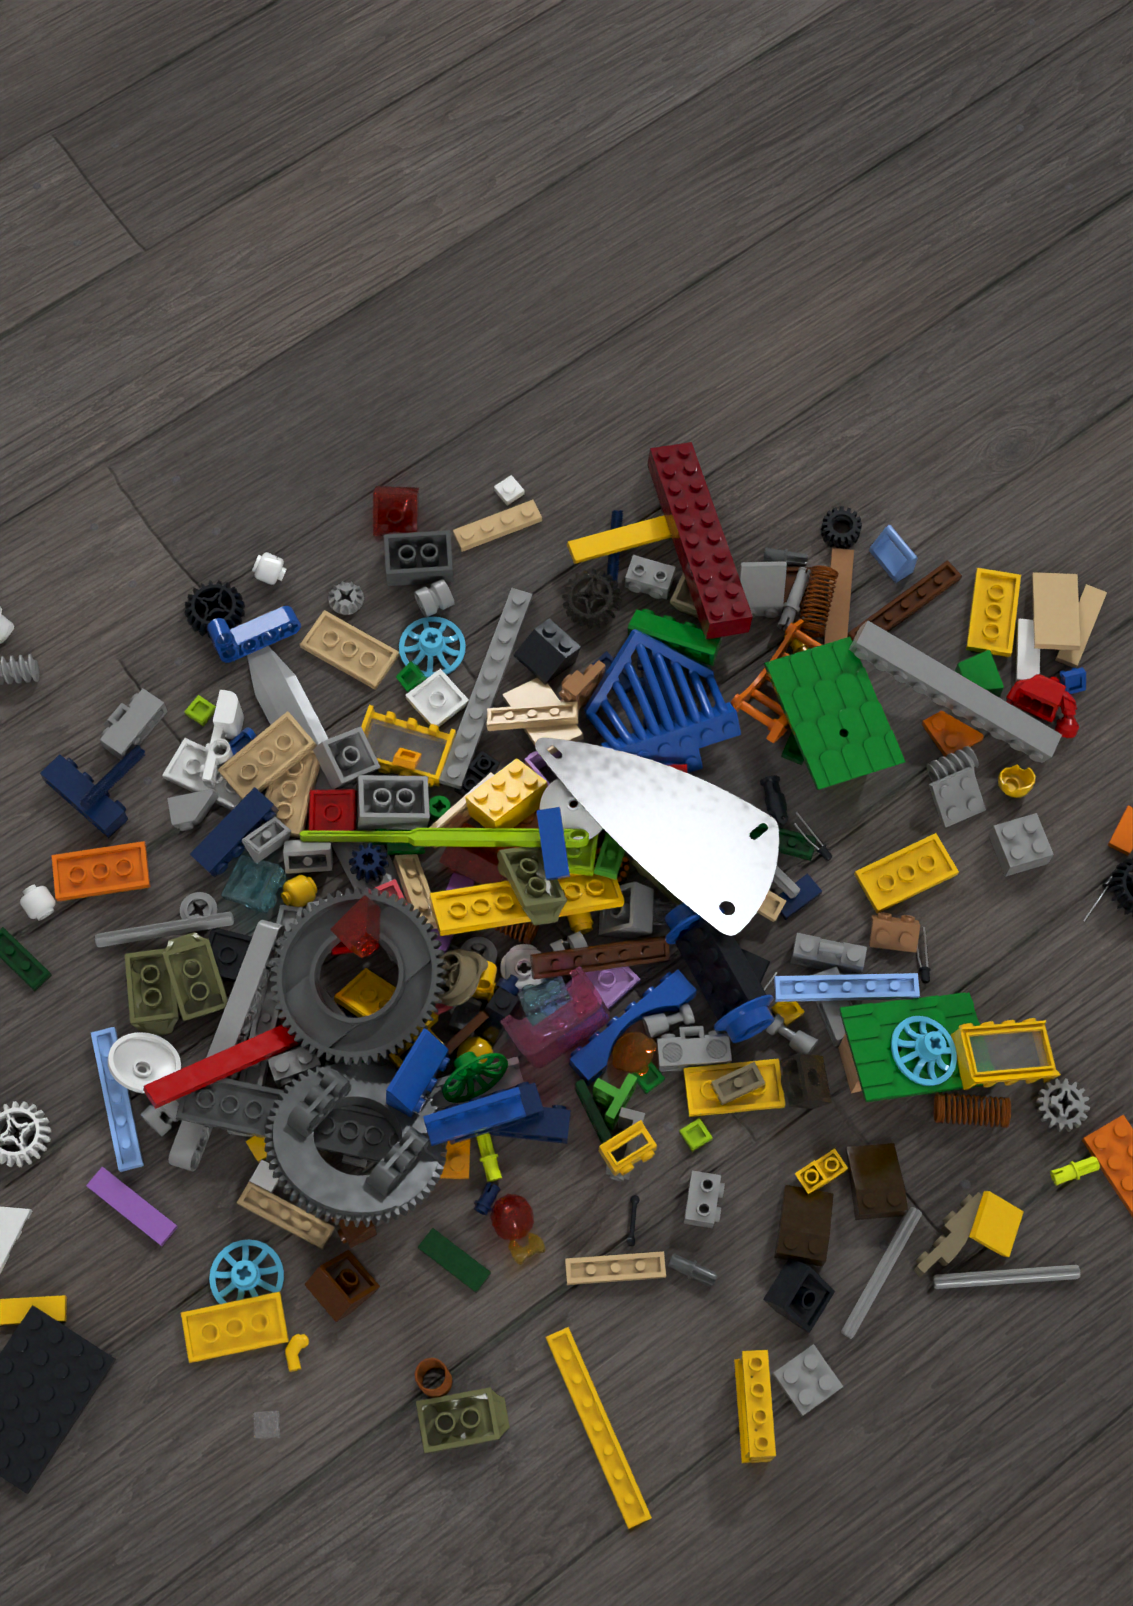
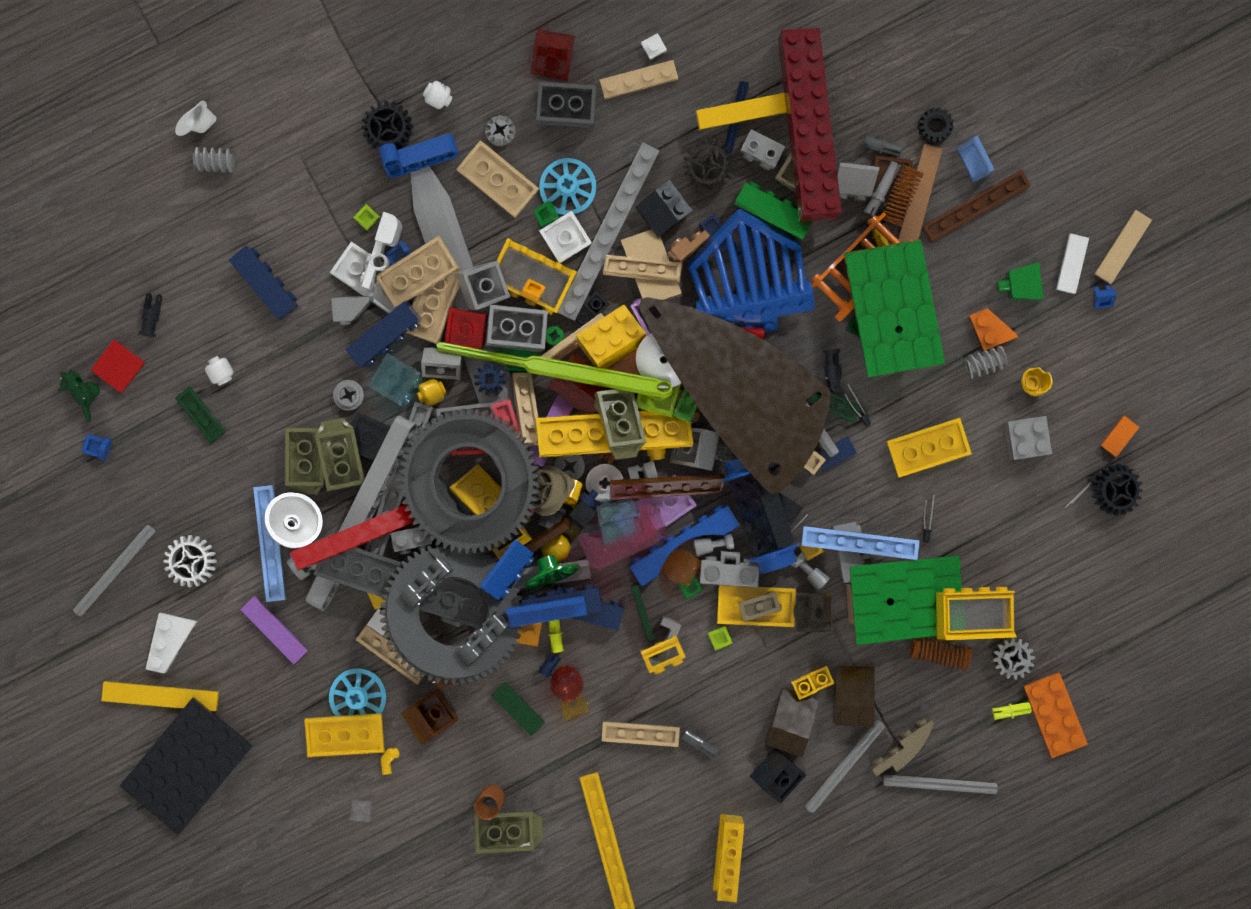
camera: 10 degrees right, 20 degrees up
(100, 871) = (272, 350): orange plate -> none
(112, 777) = (288, 272): dark blue axle -> none
(134, 726) = (307, 229): light grey piece -> none
(164, 929) = (319, 409): light grey axle -> none
(266, 839) = (409, 346): light grey slope -> none
(360, 927) = (474, 451): clear red slope -> none
(436, 597) = (574, 144): light grey wheel -> none
(553, 843) = (641, 393): blue tile -> none
(614, 1098) = (663, 606): bright green bracket -> none
(631, 1239) = (664, 682): black hinge -> none
(703, 1199) = (716, 691): light grey brick -> none
(807, 1380) = (772, 838): light grey plate -> none
(827, 954) = (851, 509): light grey piece -> none
(894, 932) = (909, 496): medium nougat bracket -> none
(928, 1048) = (914, 605): medium azure wheel -> none
(955, 692) = (1000, 301): light grey brick -> none
(957, 797) = (984, 389): light grey plate -> none
(993, 612) = (1050, 224): yellow plate -> none
(996, 1224) = (940, 745): yellow tile -> none
(1043, 698) = (1073, 312): red torso -> none
(1056, 611) = (1104, 232): tan tile -> none

